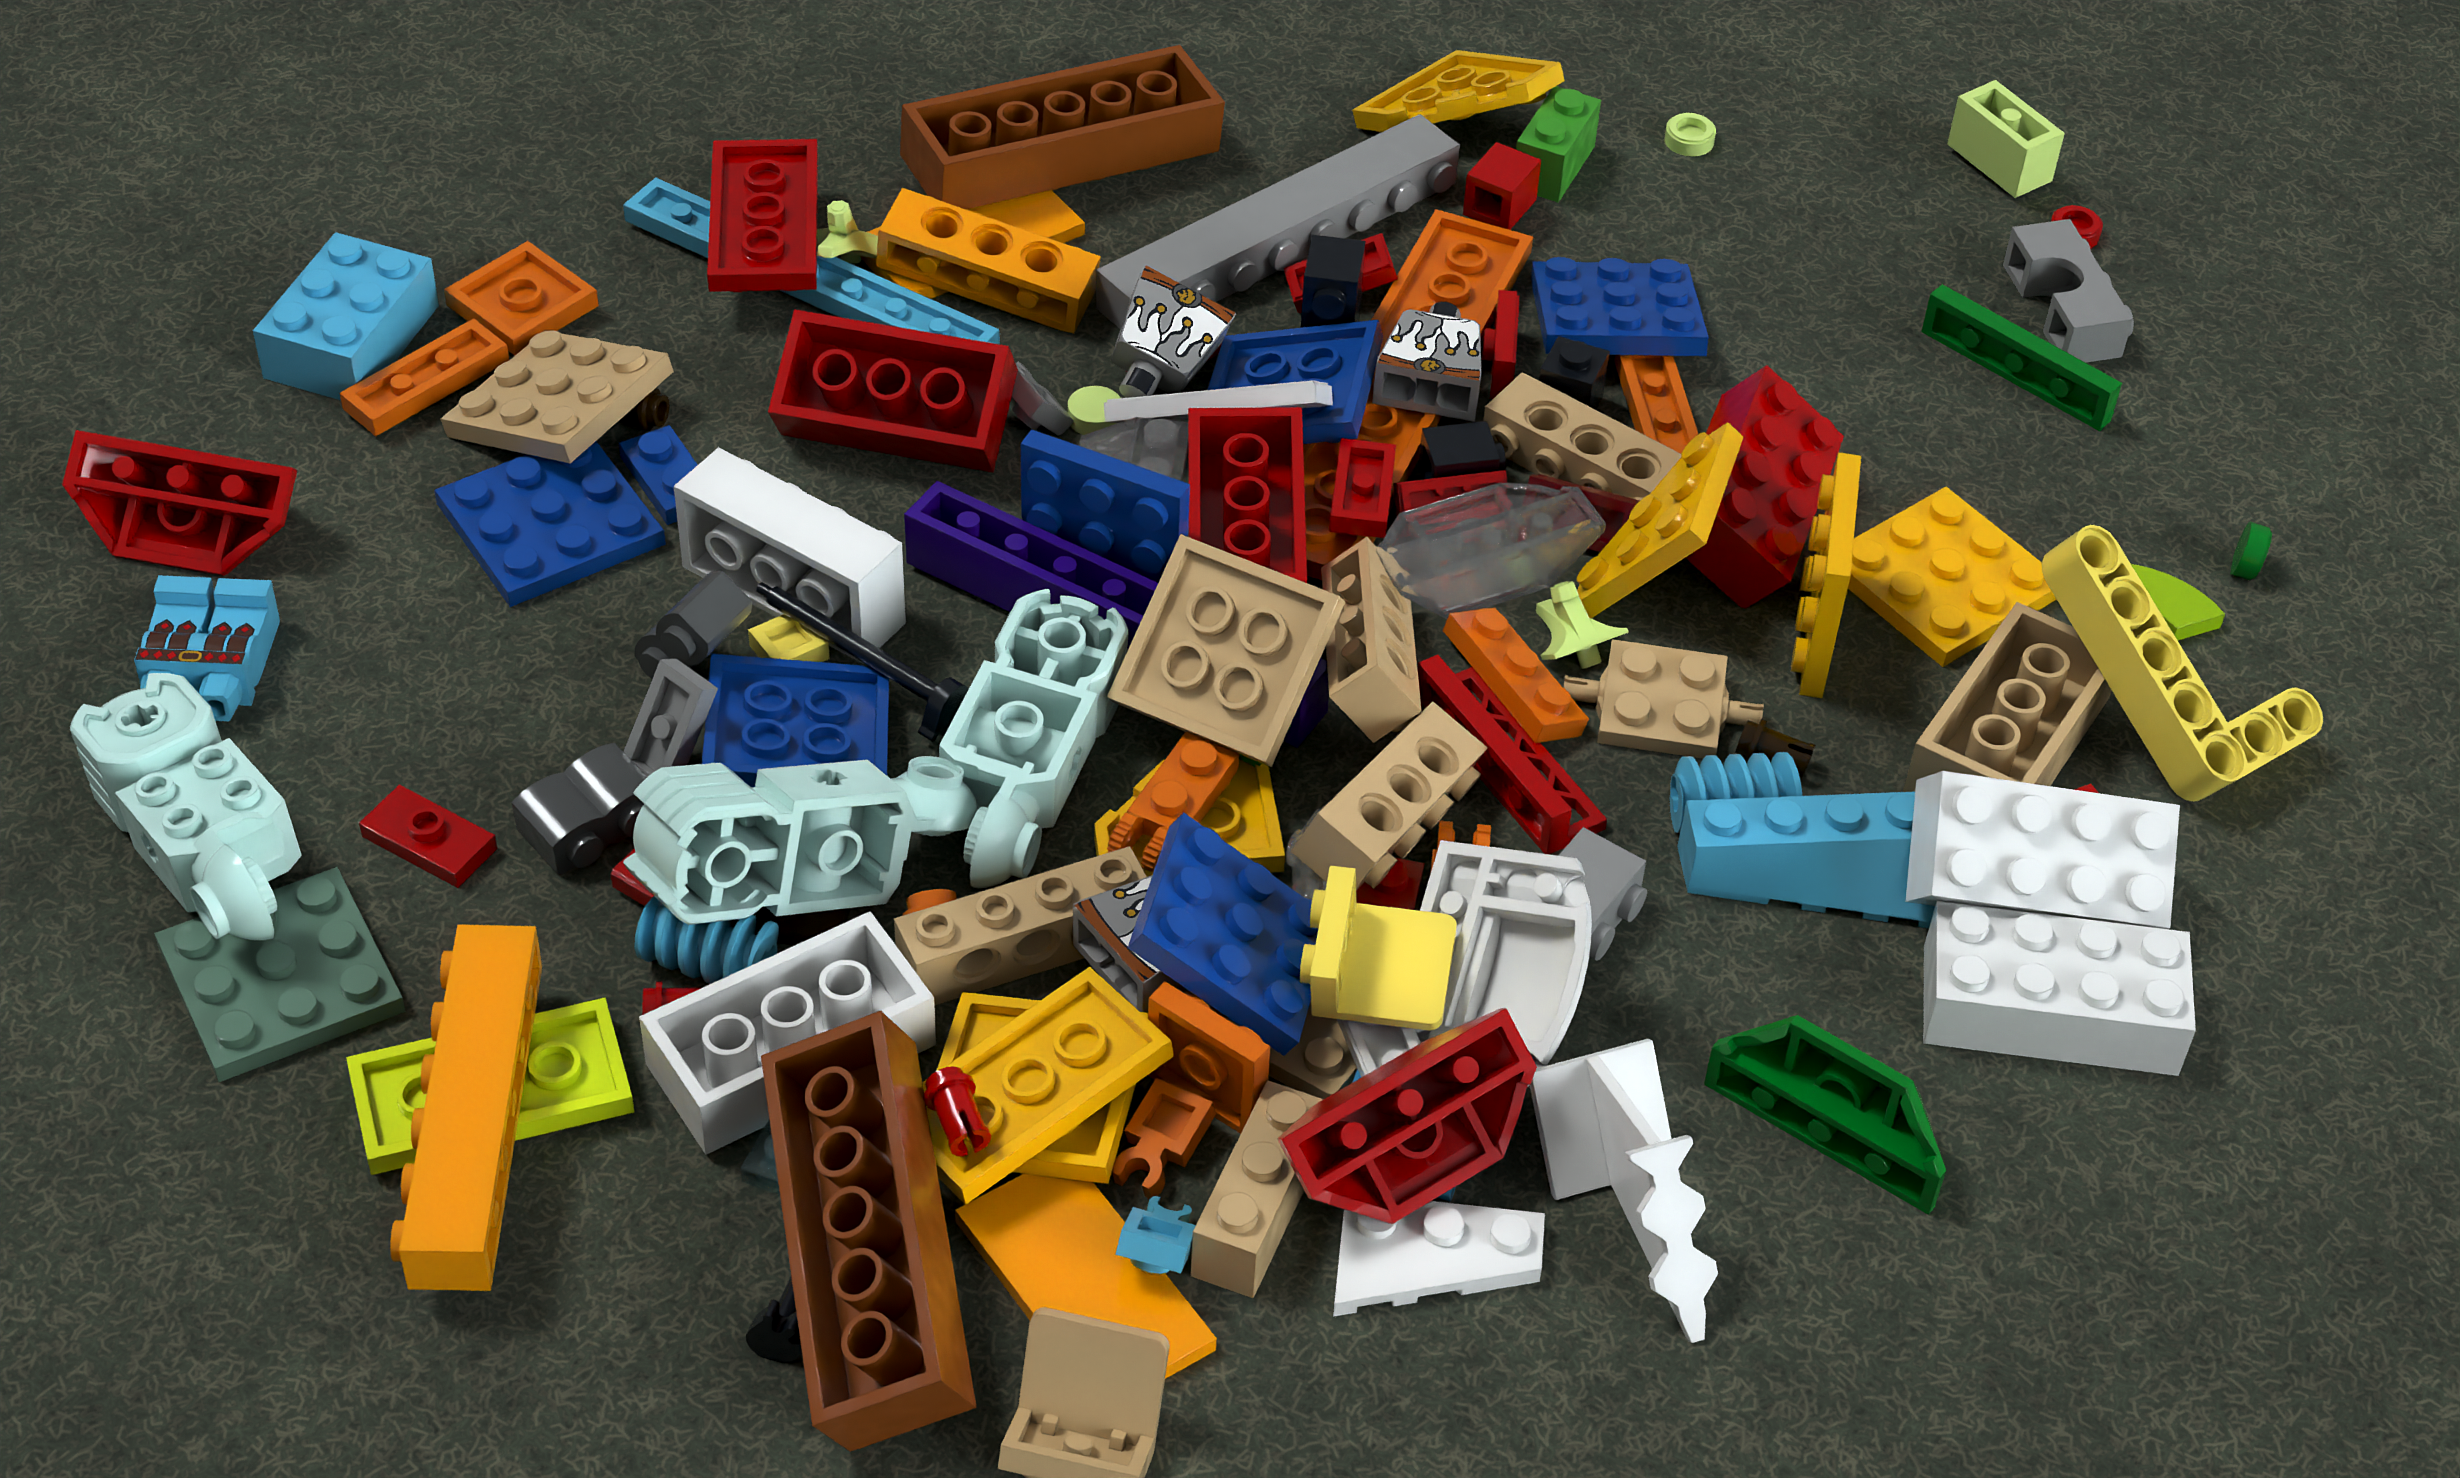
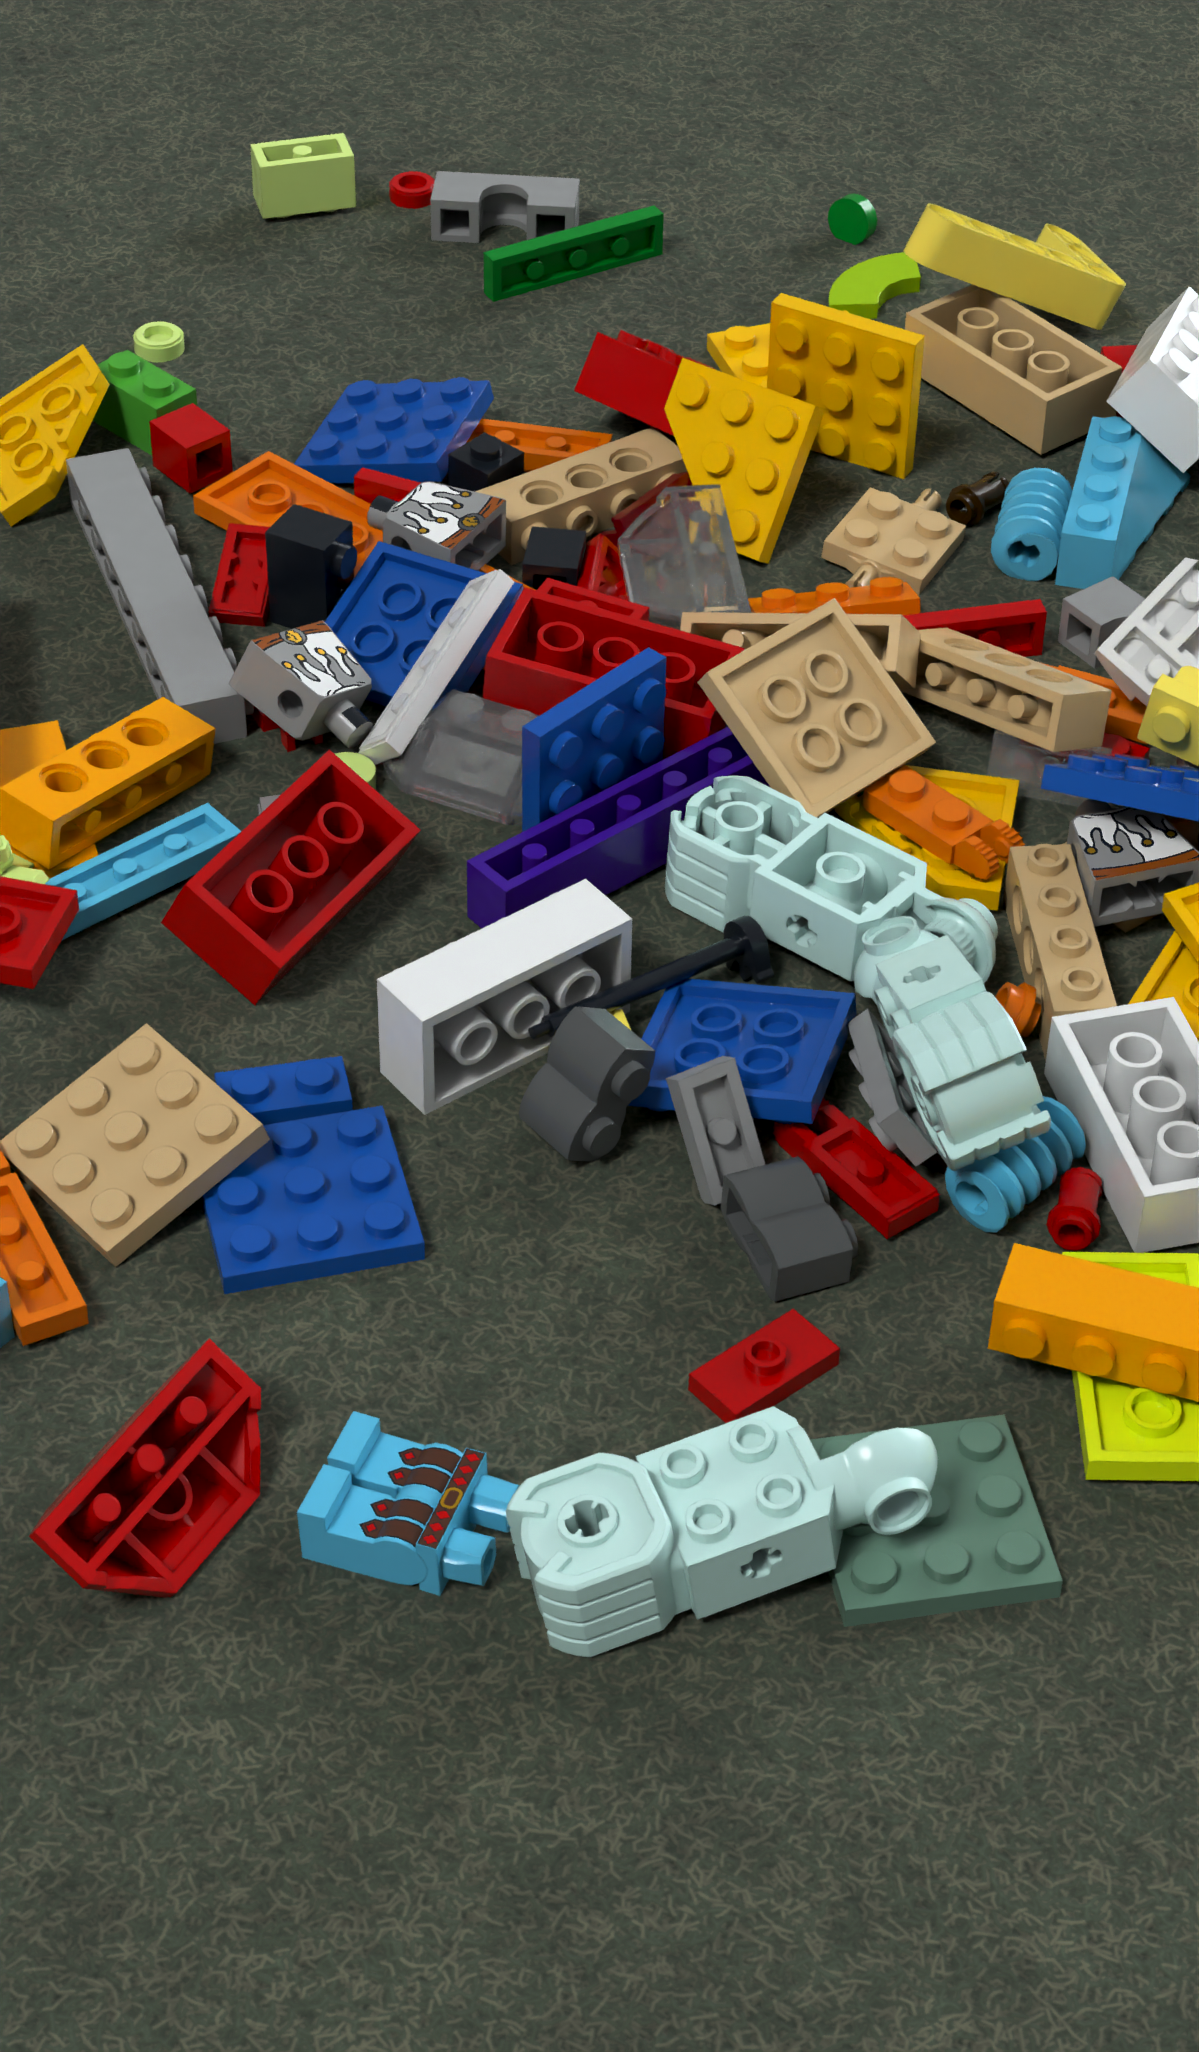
camera: 70 degrees left, 5 degrees down
(1572, 627) = (788, 561): yellowish green piece -> none

